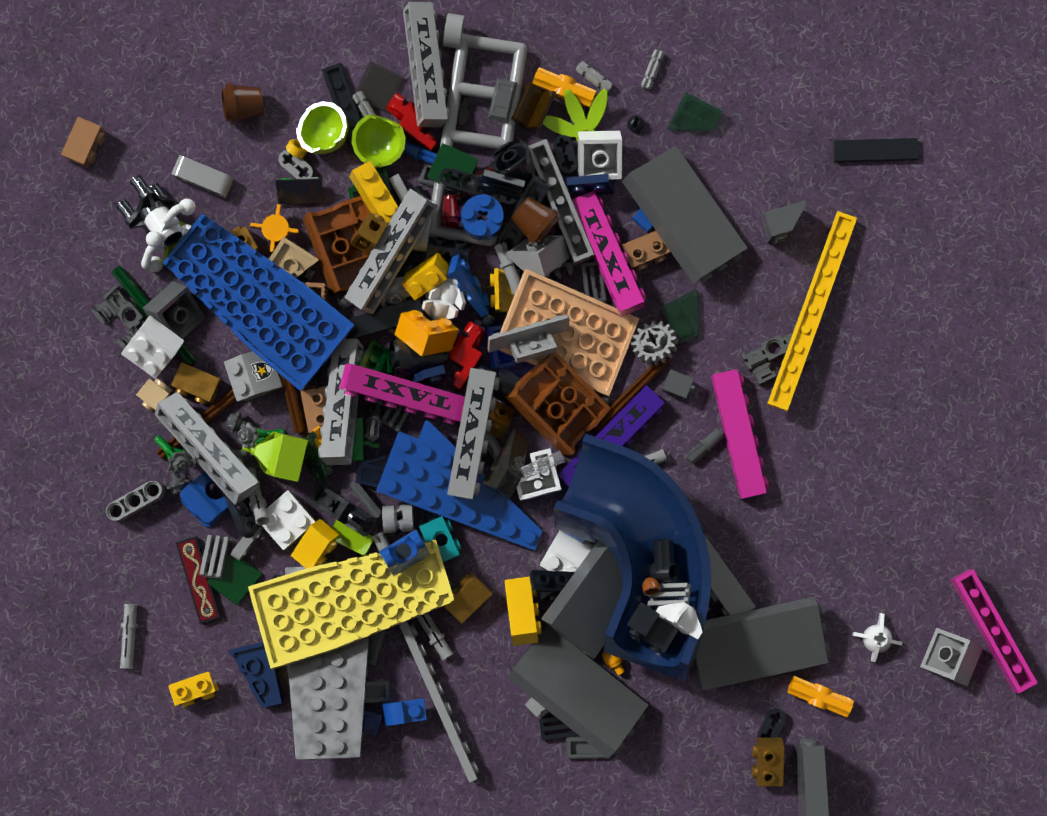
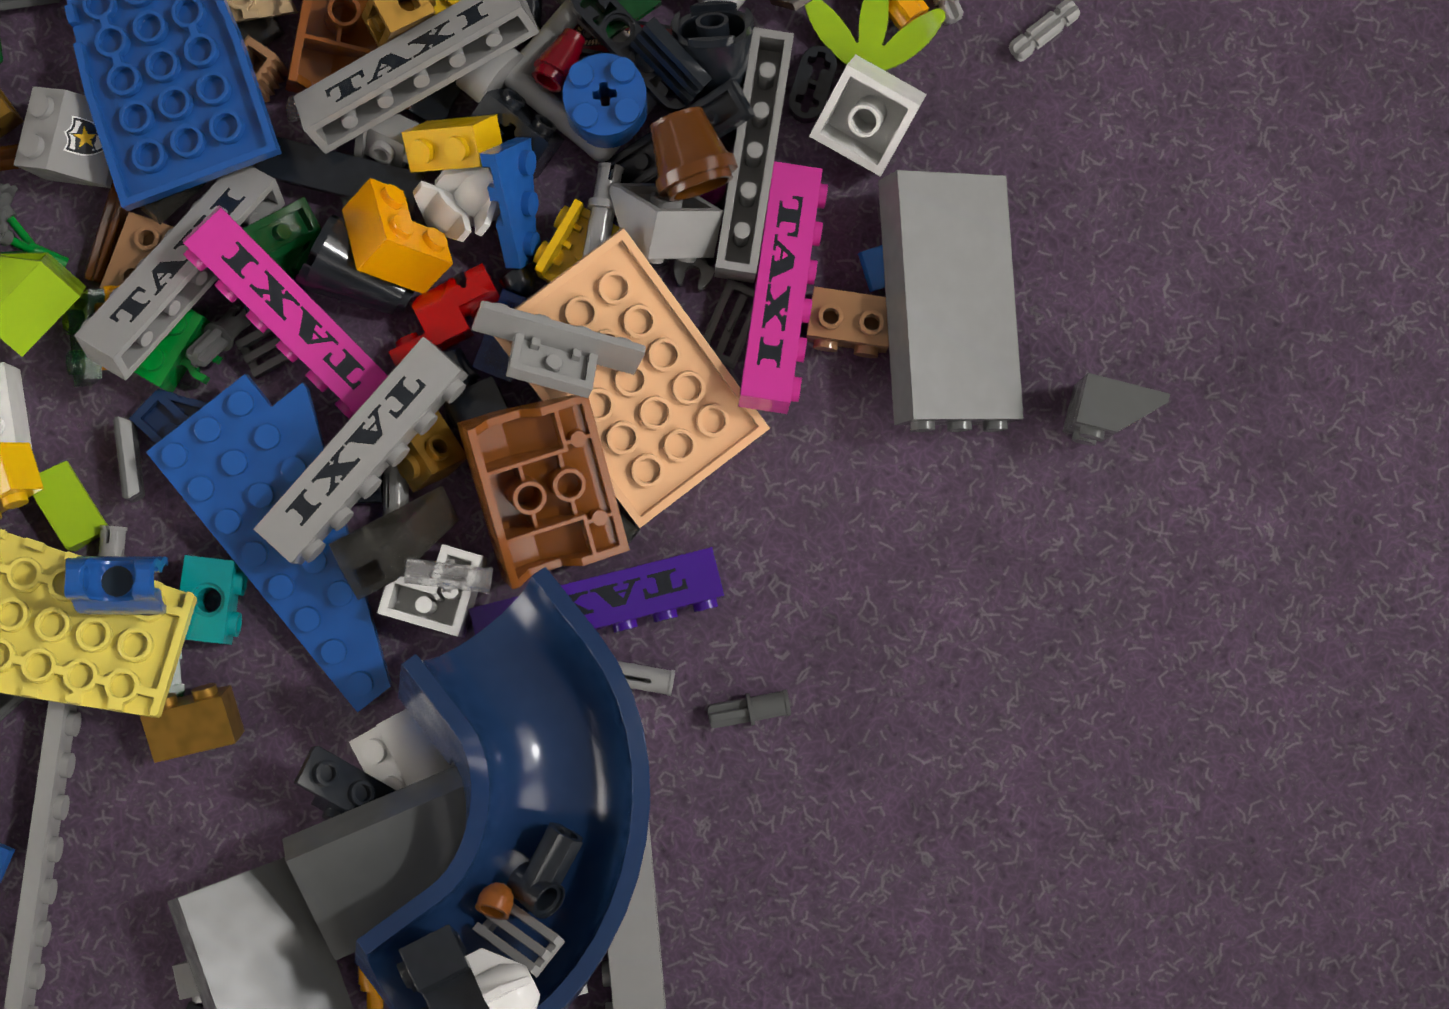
camera: 25 degrees right, 0 degrees up
(340, 509) = (75, 450): black plate -> none
(390, 518) = (156, 518): light grey wheel -> none
(432, 375) = (364, 315): dark blue wing -> none
(444, 651) = (103, 757): light grey pin -> none
(522, 611) = (262, 807): yellow brick -> none
(584, 184) = (838, 160): dark blue wing -> none
(631, 392) = (664, 548): reddish brown axle -> none
(640, 124) = (966, 109): black hinge -> none
(663, 337) = (789, 491): light grey gear -> none
(678, 385) = (767, 579): dark grey brick -> none
(683, 316) = (845, 469): clear green wing -> none
(694, 115) = (1069, 145): clear green wing -> none
(738, 434) = (819, 724): dark pink brick -> none
(759, 357) = (931, 613): dark grey piece -> none
(812, 311) = (1067, 592): yellow plate -> none
(875, 150) = (1339, 384): black tile -> none

